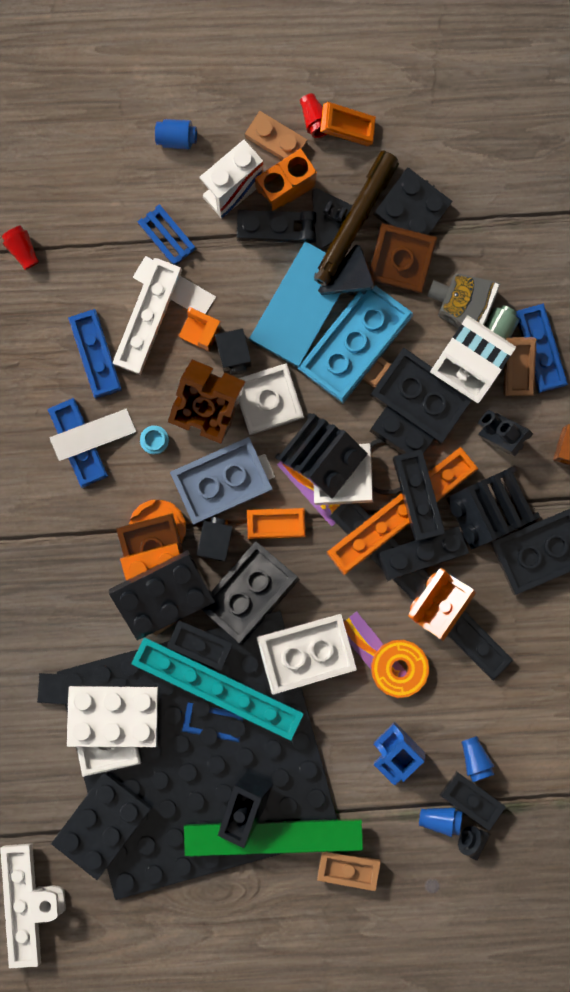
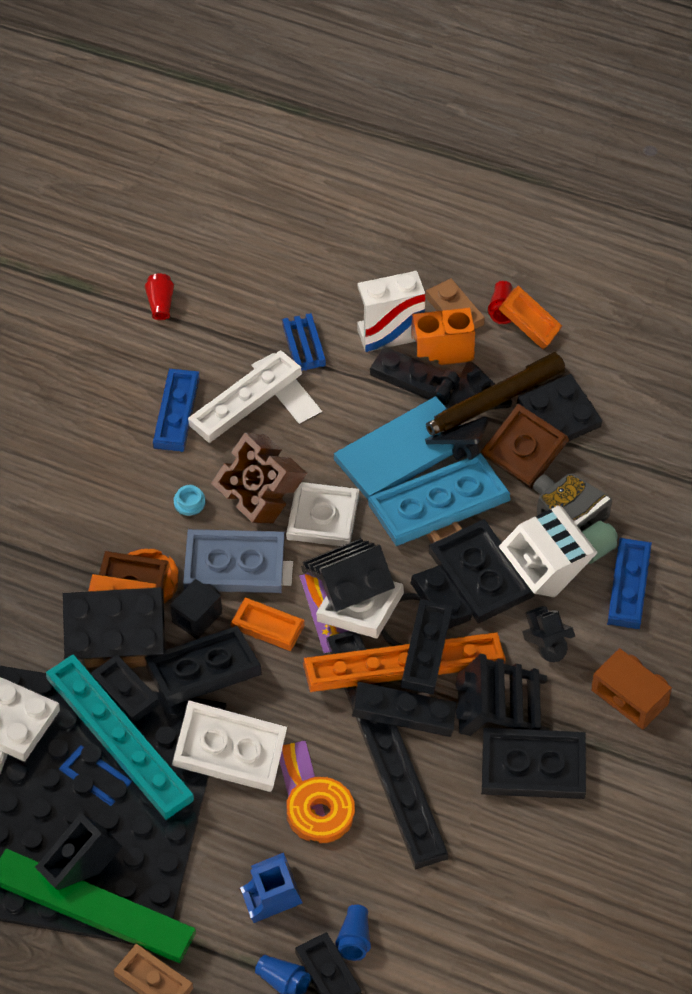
camera: 30 degrees right, 30 degrees down
(88, 464) = (113, 475): blue tile -> none
(92, 434) = (132, 470): white sticker -> none
(175, 134) = (359, 265): blue brick -> none
(200, 329) = (291, 429): orange panel -> none
(233, 351) = (313, 454): black brick -> none
(441, 604) = (395, 754): bracket -> none
(520, 367) = (596, 584): medium nougat tile -> none

